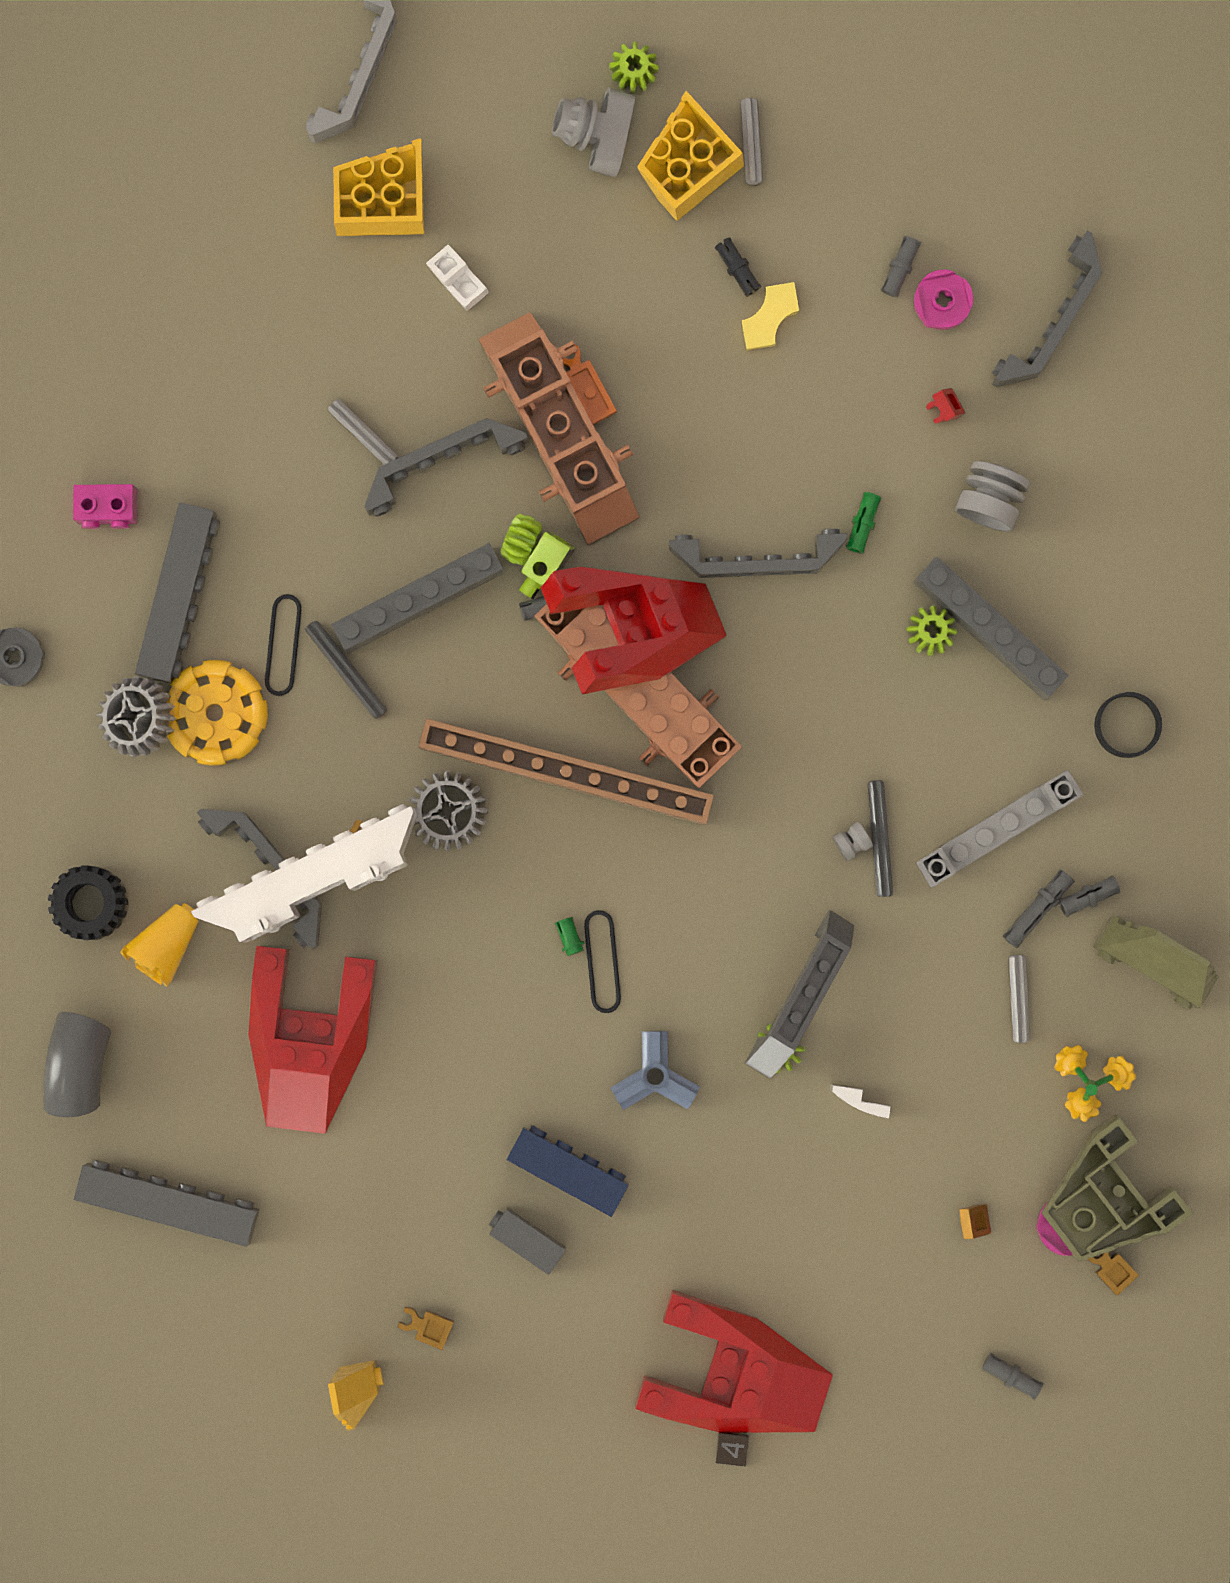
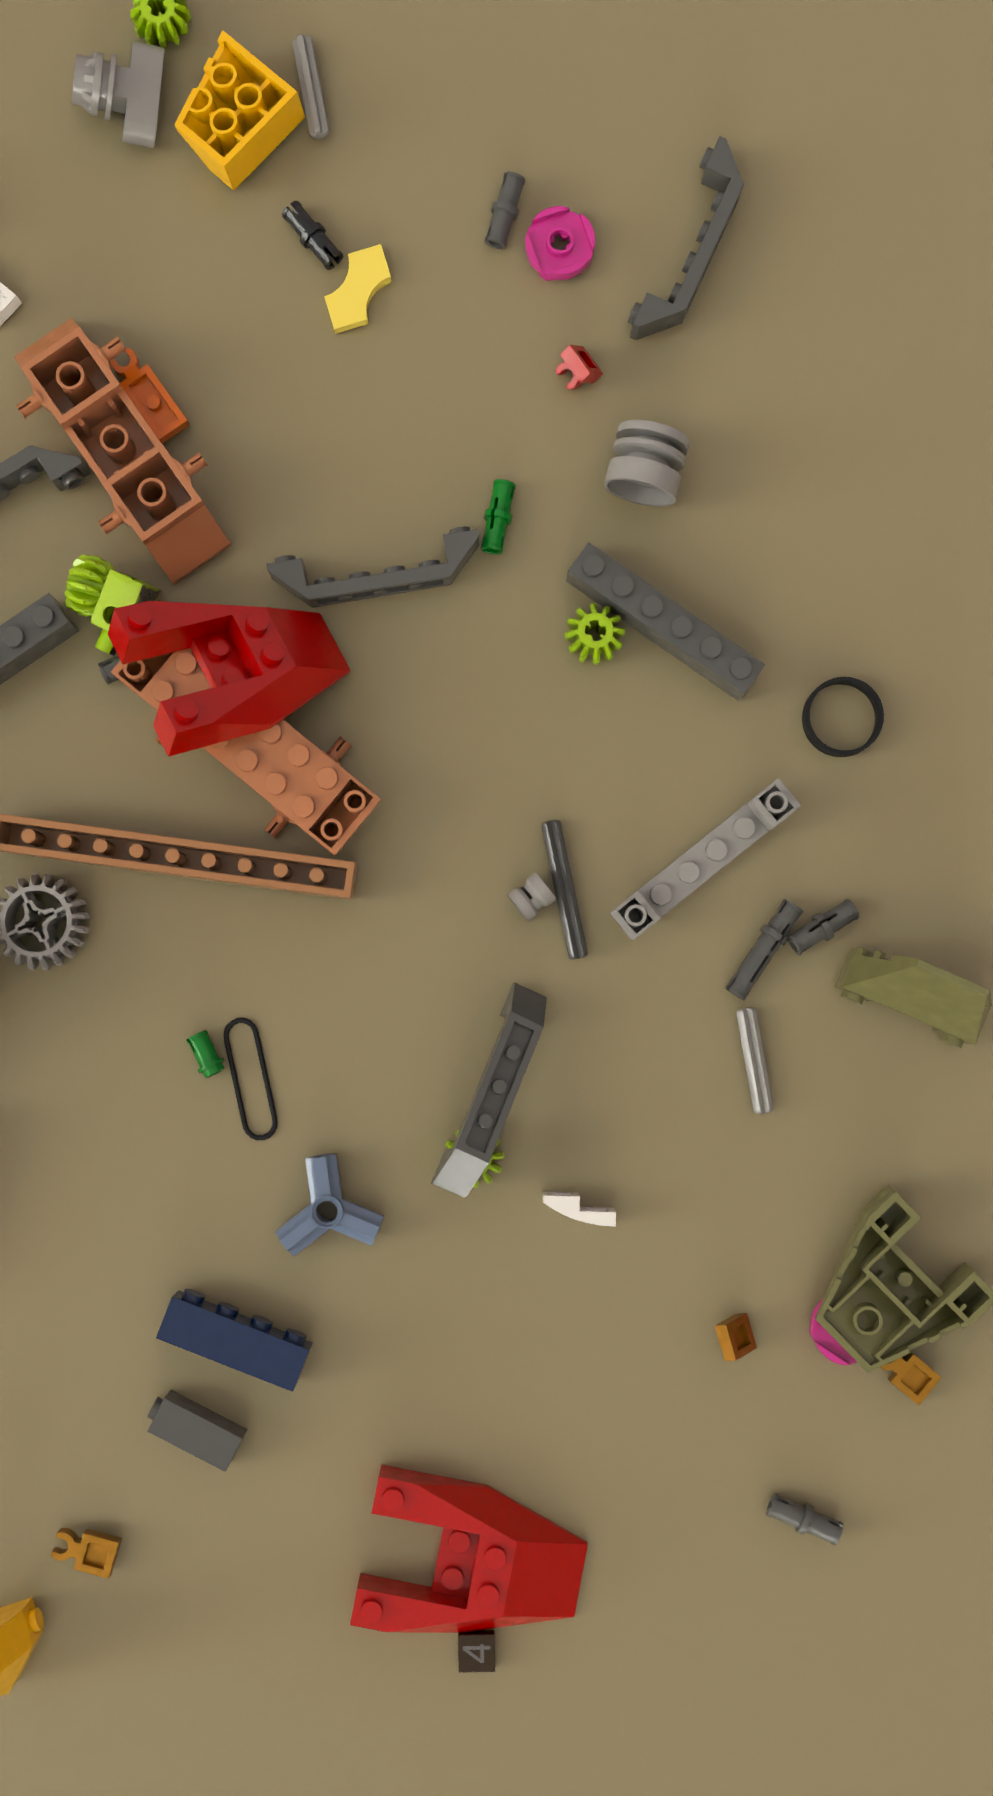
camera: 10 degrees left, 0 degrees up
(1083, 1102) = (847, 1176): yellow plant -> none

